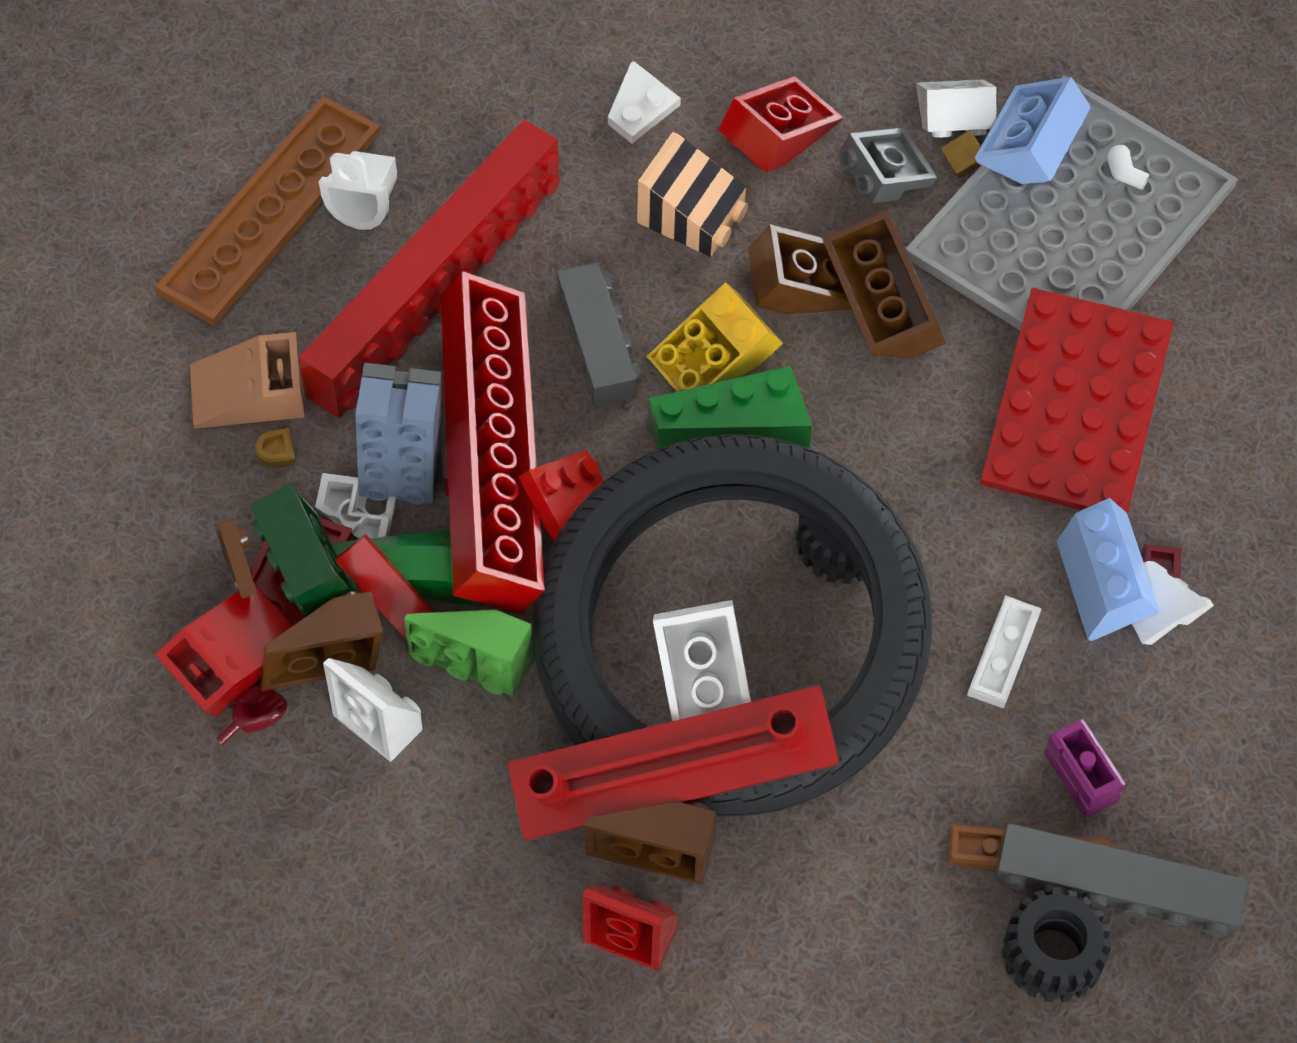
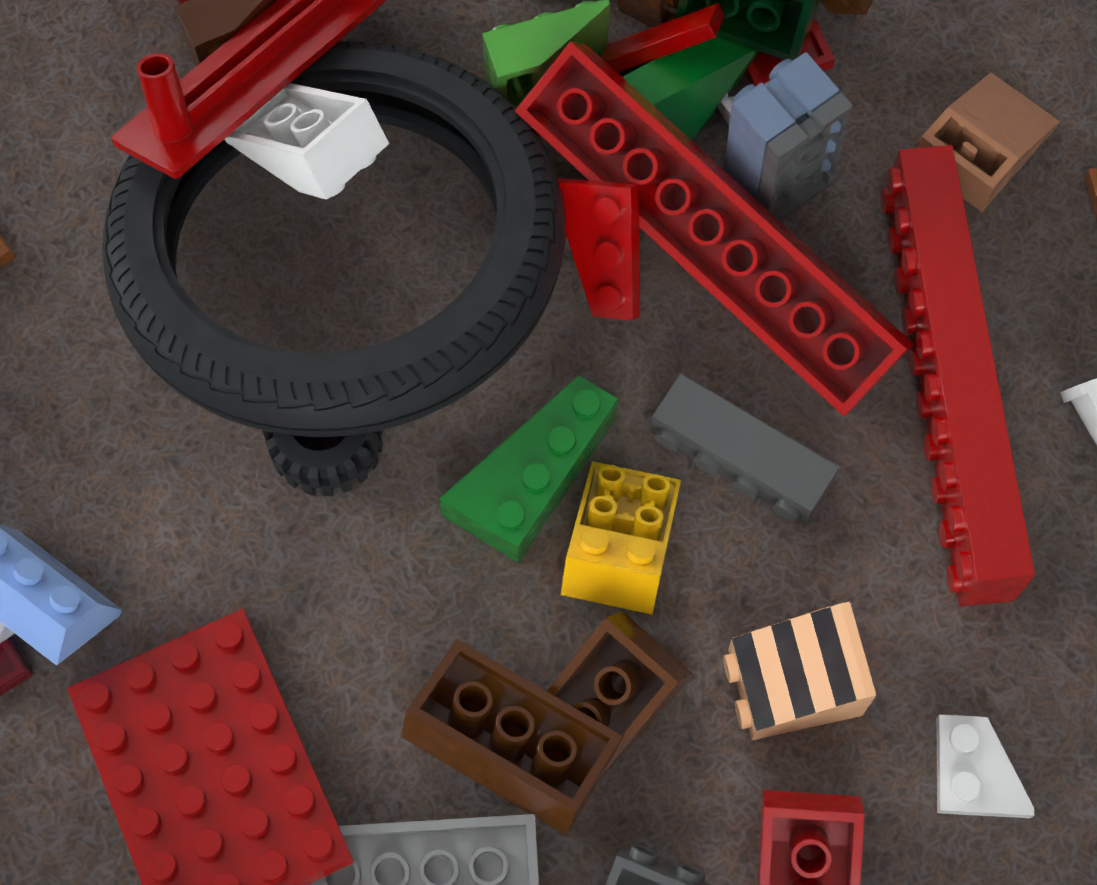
camera: 140 degrees right, 10 degrees up
(275, 448) = (902, 114): pearl gold tile -> none
(1004, 652) = (87, 453): white tile -> none

